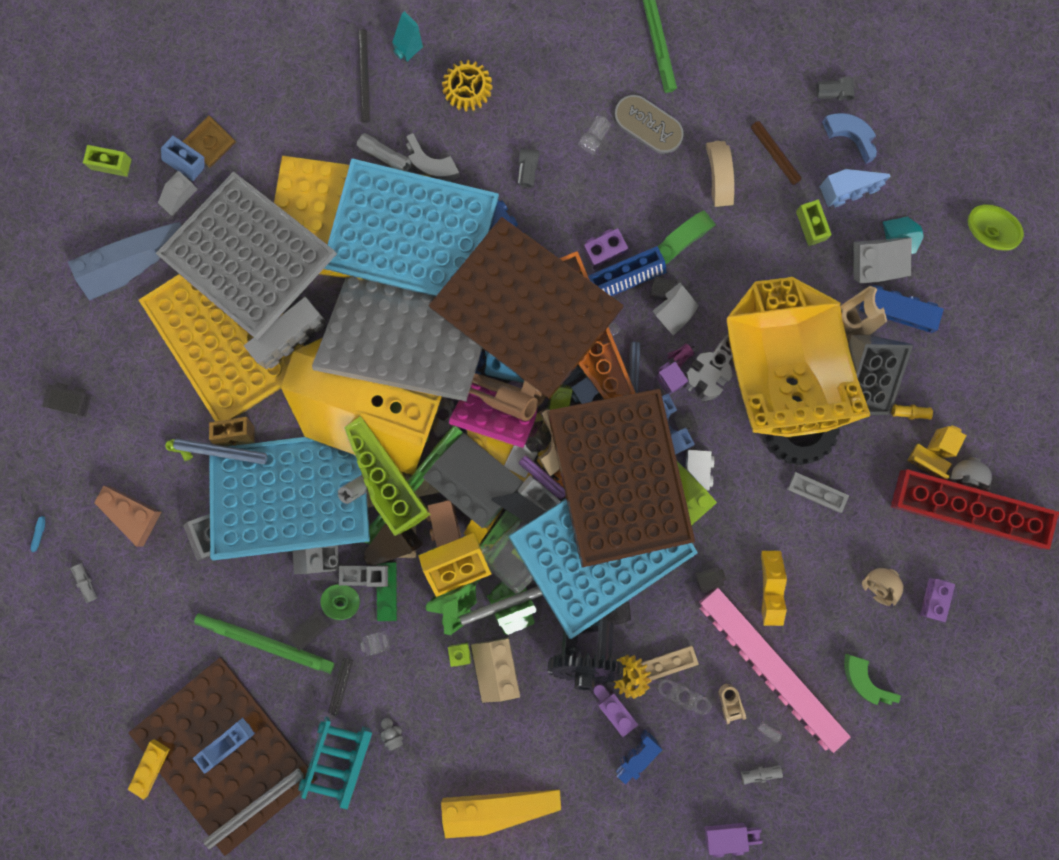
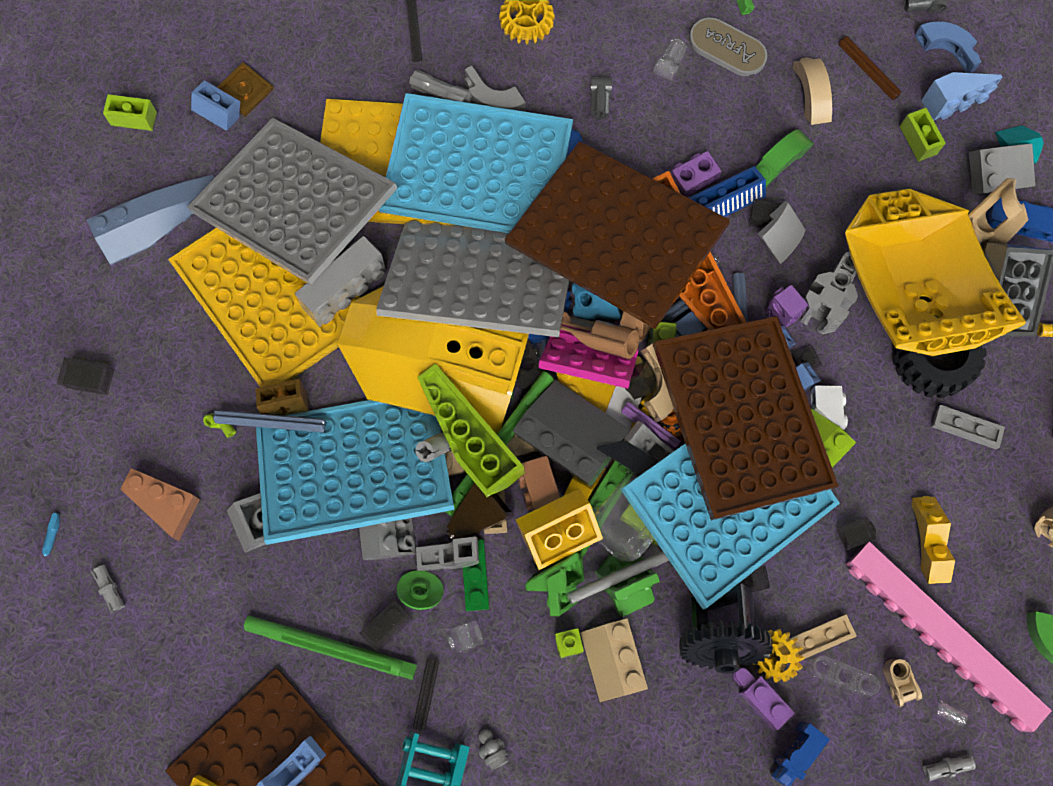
camera: 10 degrees left, 10 degrees down
(176, 193) = (209, 142): light grey slope -> none
(682, 354) = (797, 280): flat silver piece -> none

